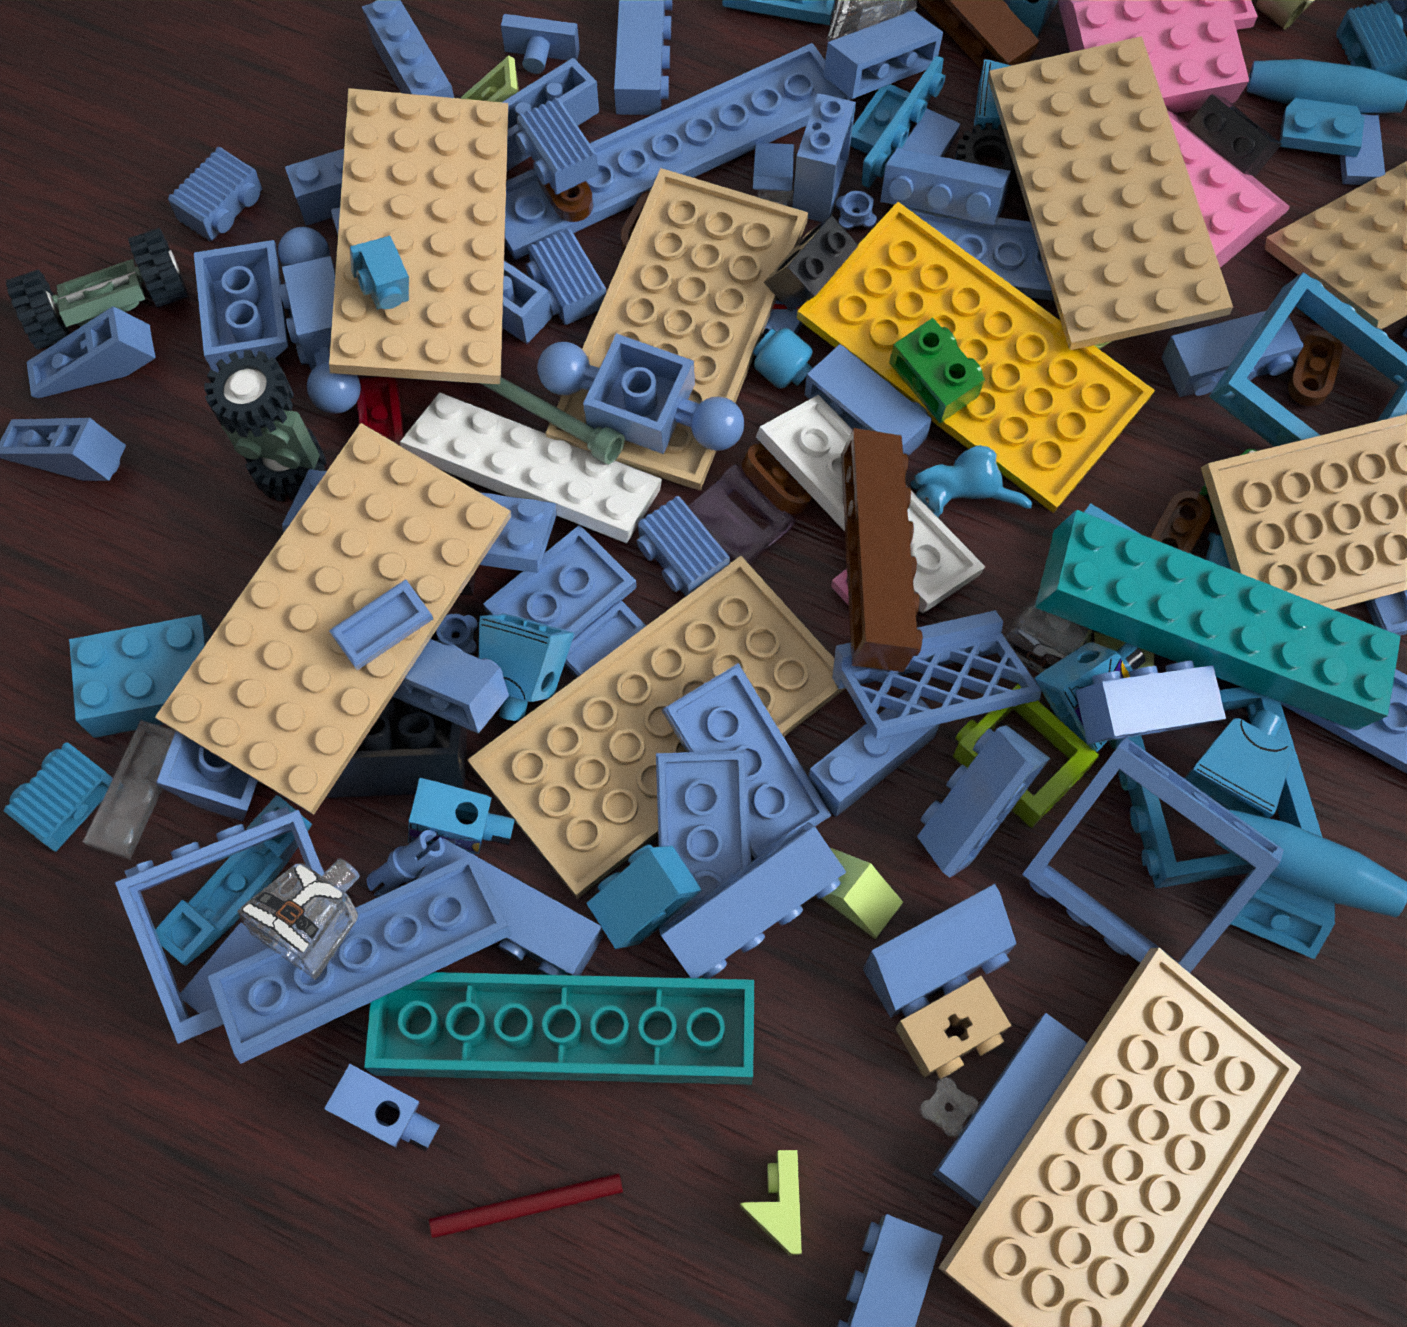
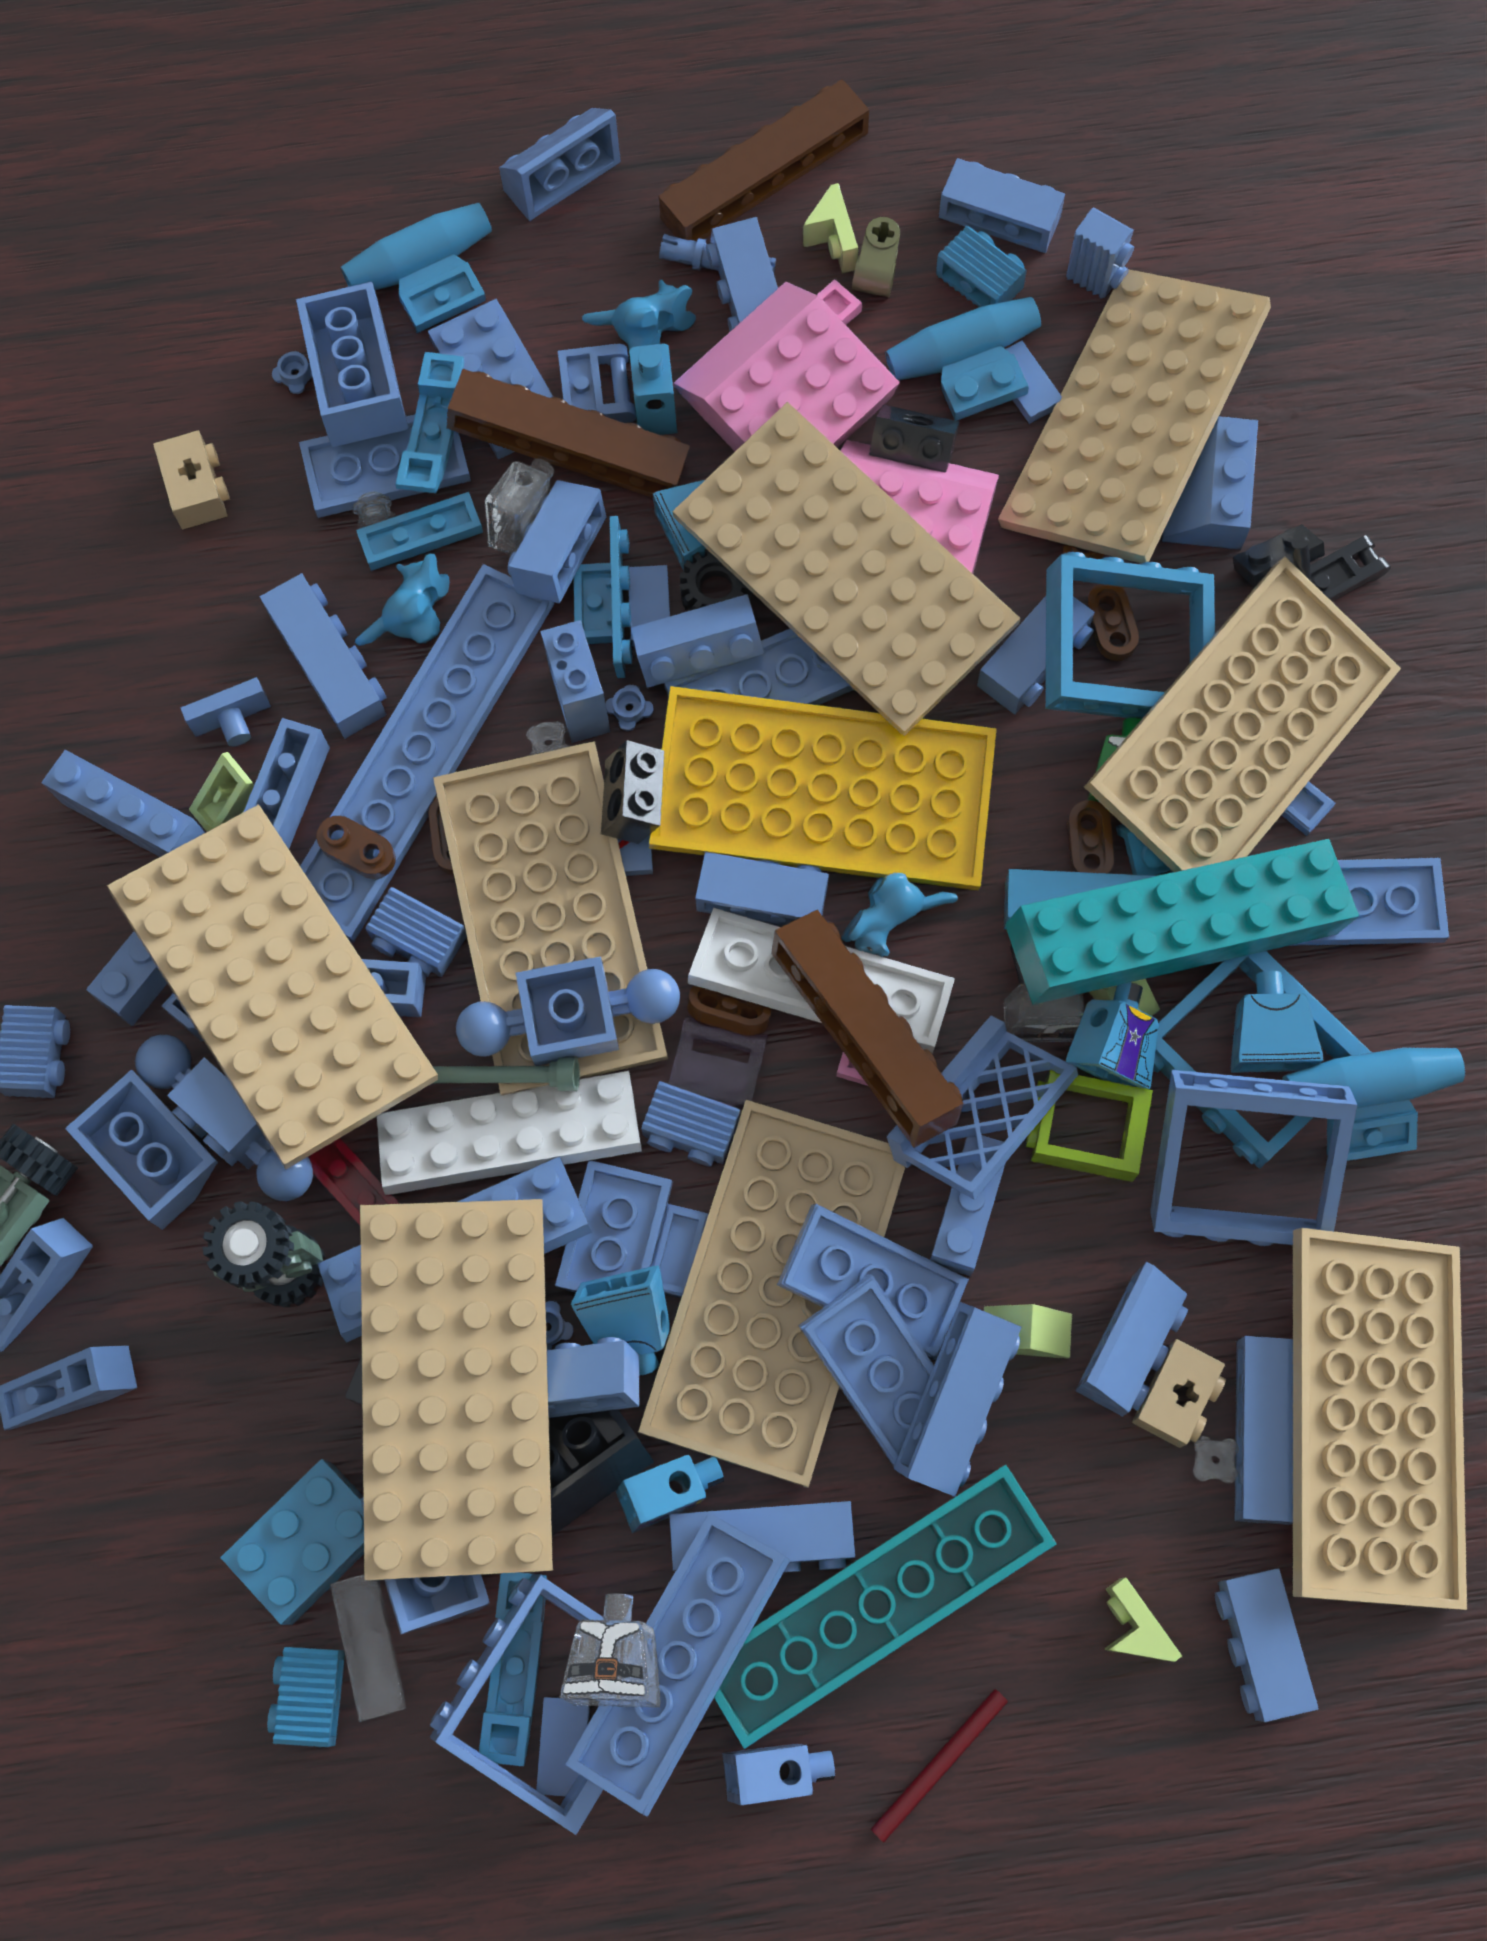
camera: 30 degrees left, 5 degrees up
(380, 272) = (277, 1053): dark azure brick -> none
(381, 624) = (505, 1373): medium blue tile -> none
(406, 863) = (652, 1556): medium blue pin -> none
(556, 146) = (332, 820): medium blue brick -> none
(643, 895) = (867, 1452): dark azure brick -> none
(732, 43) = (410, 608): none -> dark azure animal
(773, 167) = (530, 711): medium blue tile -> none
(782, 358) = (660, 892): dark azure head -> none
(937, 369) = (808, 828): green brick -> none
(980, 798) = (1086, 1193): medium blue slope -> none
(1149, 701) = (1171, 1027): brick -> none

